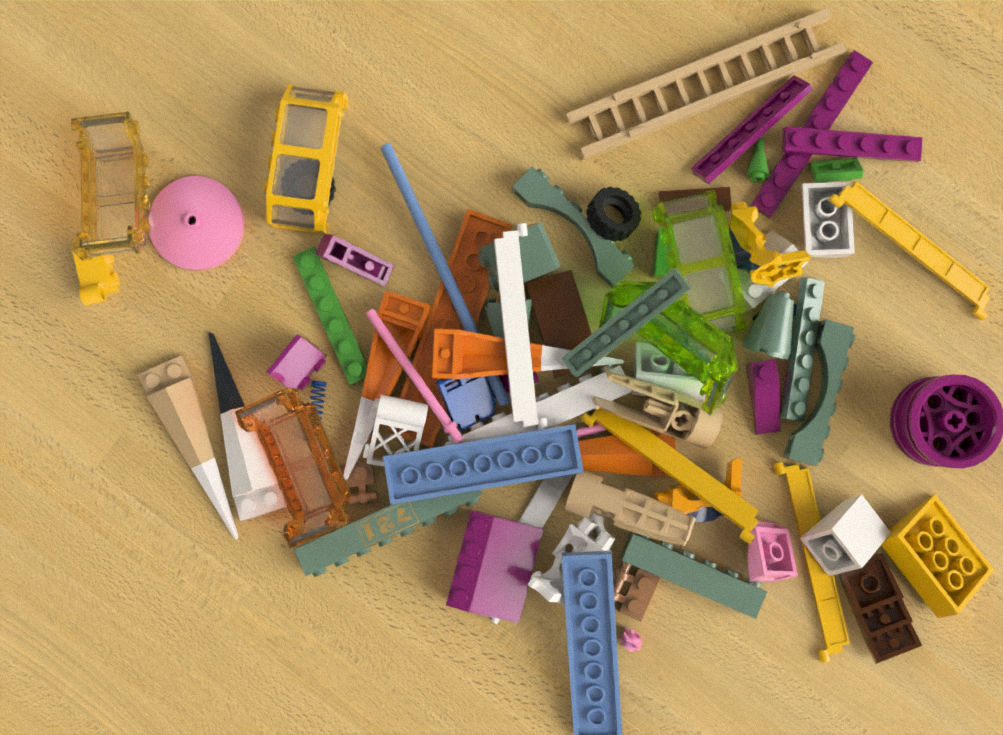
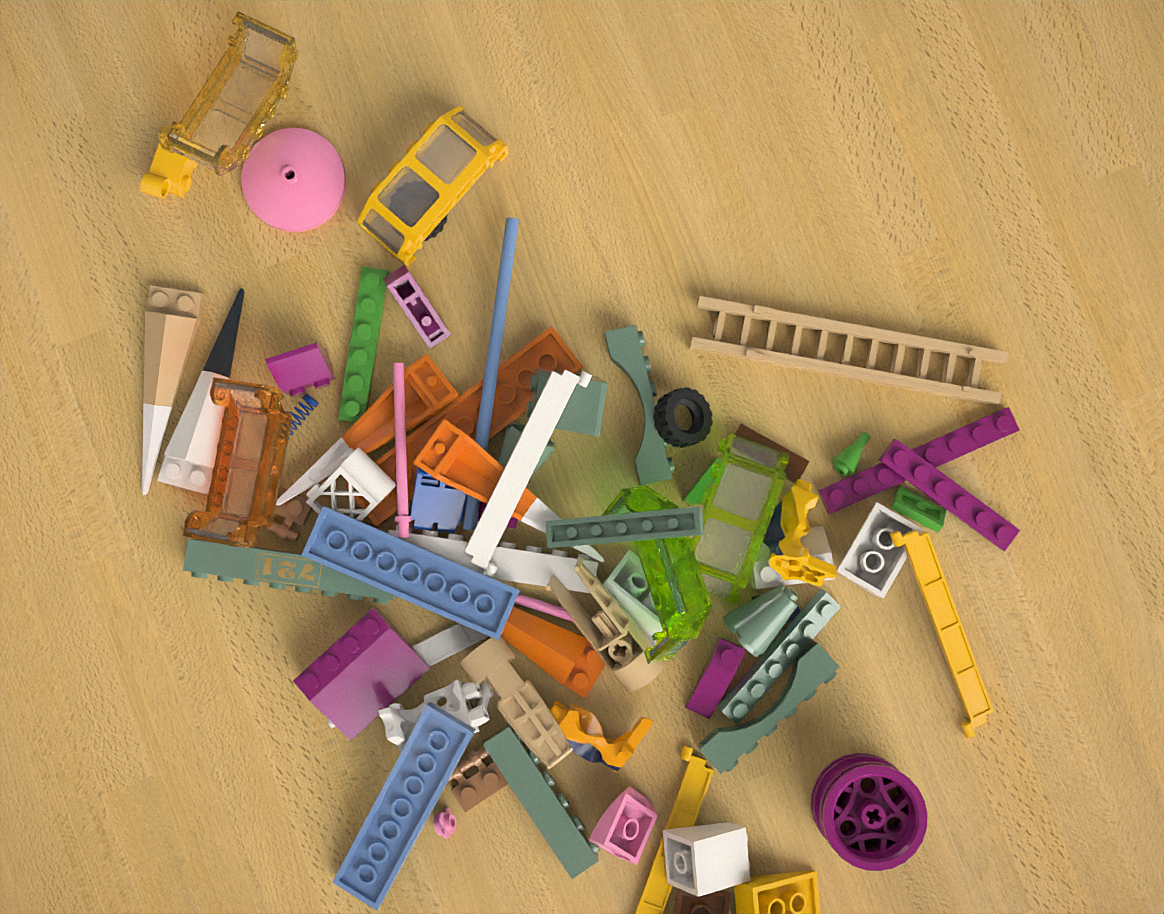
camera: 30 degrees right, 0 degrees up
(559, 312) = (573, 477): reddish brown slope -> none
(680, 469) = (590, 697): yellow piece -> none
(751, 129) = (864, 420): magenta plate -> none

